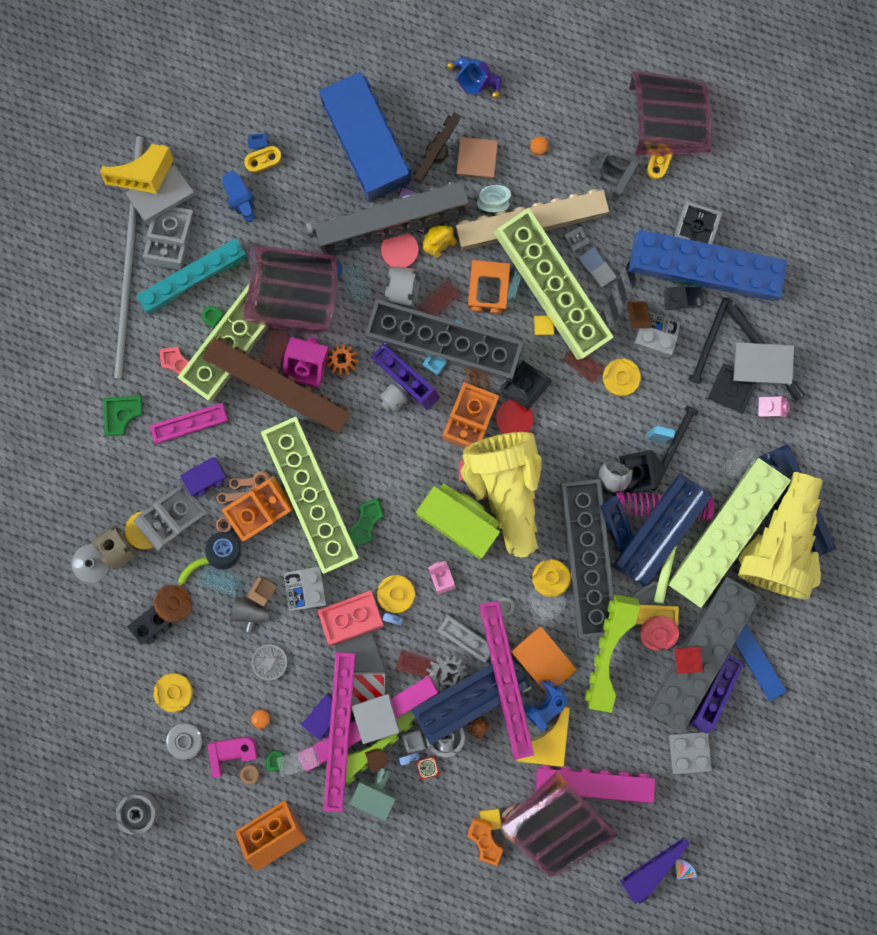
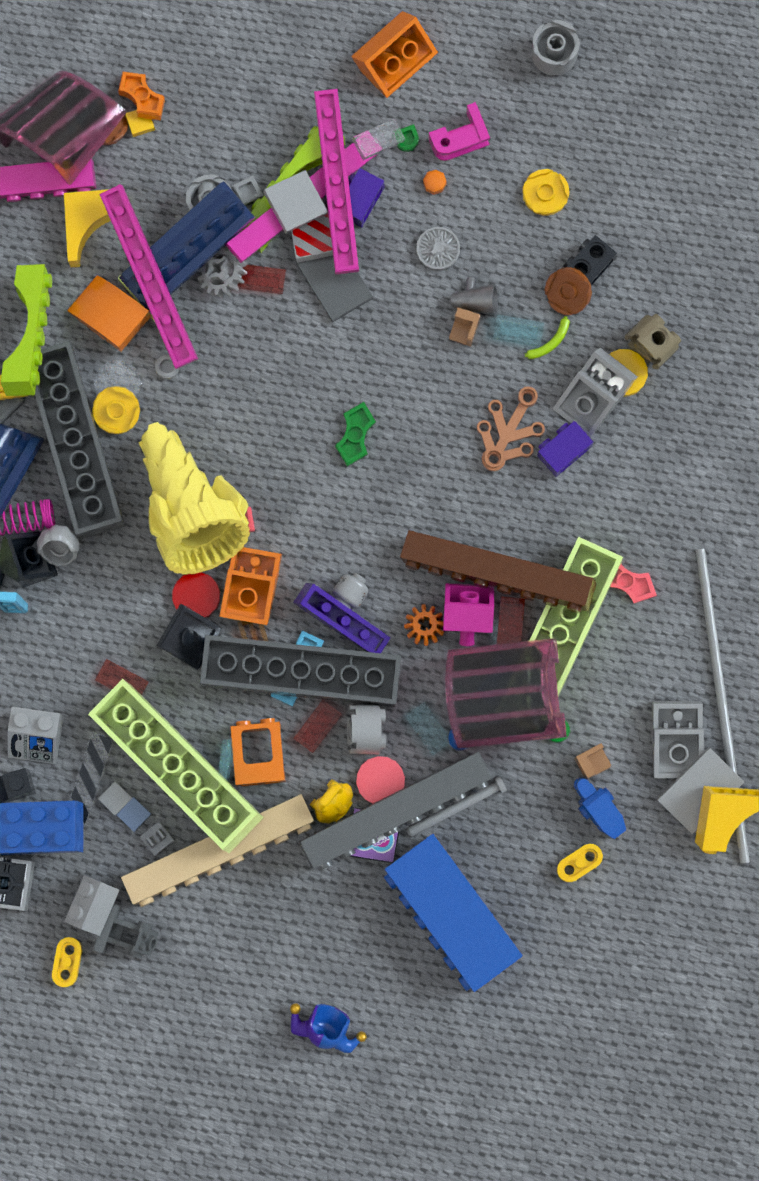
camera: 175 degrees right, 5 degrees down
(82, 571) = (693, 318): light grey dish -> none
(119, 412) = (688, 507): green tile -> none
(170, 288) = (635, 691): teal arch -> none
(184, 741) = (519, 139): light grey wheel -> none
(189, 423) = (598, 512): dark pink tile -> none
(212, 316) = (600, 650): green tile -> none
(226, 545) = (521, 364): black wheel -> none
(237, 231) = (592, 761): none -> medium nougat panel
(249, 774) = (434, 117): medium nougat tile -> none
(258, 141) = (591, 886): blue plate -> none
(258, 508) = (489, 421): orange slope -> none
(305, 588) = (412, 340): light grey slope -> none
(310, 495) = (429, 450): yellowish green brick -> none
(350, 618) = (350, 316): coral tile -> none
(374, 796) = (280, 116): sand green brick -> none
(376, 759) = (286, 158): reddish brown tile -> none
(392, 619) = (300, 325): light blue tile -> none
(393, 601) = (302, 356): yellow tile -> none
(406, 759) = (253, 169): light blue tile -> none
(427, 767) = (225, 165): tile -> none
(436, 149) = (357, 915): dark brown plate -> none
(441, 577) = (249, 385): bright pink bracket -> none
(459, 519) = (238, 445): lime piece -> none
(465, 638) = (209, 321): light grey tile -> none
(477, 158) = (304, 919): nougat tile -> none
(478, 727) = (171, 218): dark orange plant -> none
(494, 198) = (272, 868): light aqua piece -> none
(539, 146) = (226, 952): orange tile -> none
(543, 326) = (180, 718): yellow tile -> none
(548, 709) = (90, 256): blue tile -> none
(616, 379) = (70, 680): yellow tile -> none
(617, 523) = (45, 486): dark blue plate -> none
(636, 195) = (91, 905): none -> light grey slope
(639, 314) = (61, 752): reddish brown tile -> none
(671, 114) = (60, 1024): windscreen -> none

